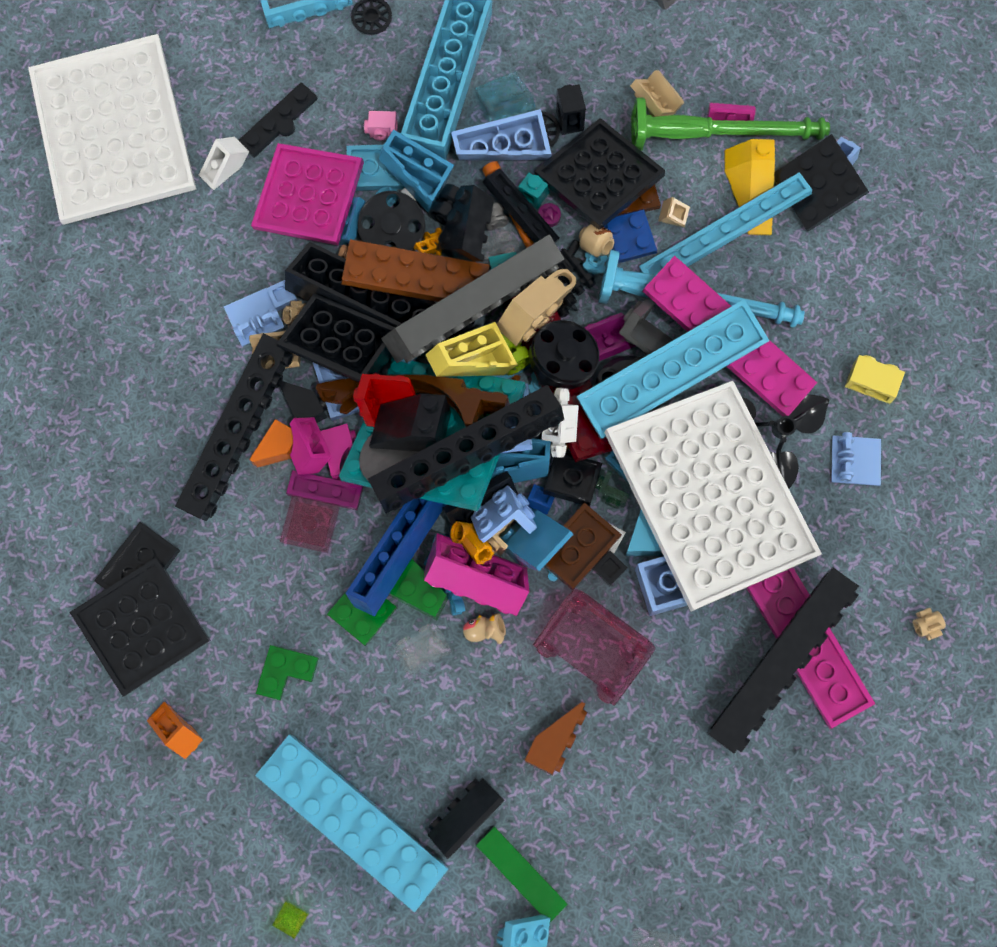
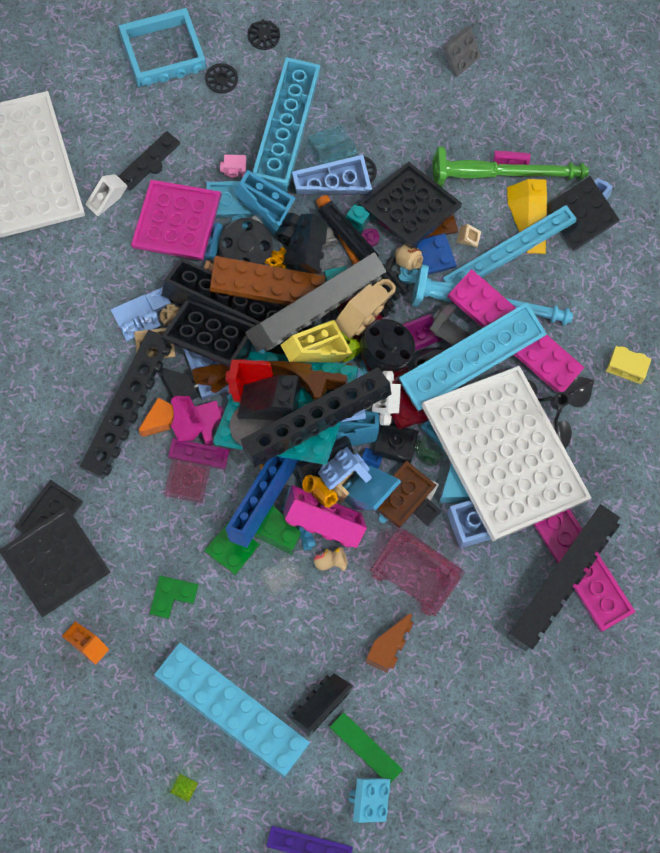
camera: 15 degrees left, 5 degrees down
(570, 109) = (385, 154): black brick -> none
(659, 94) = (454, 142): tan bracket -> none
(856, 460) = (615, 427): light blue hinge -> none

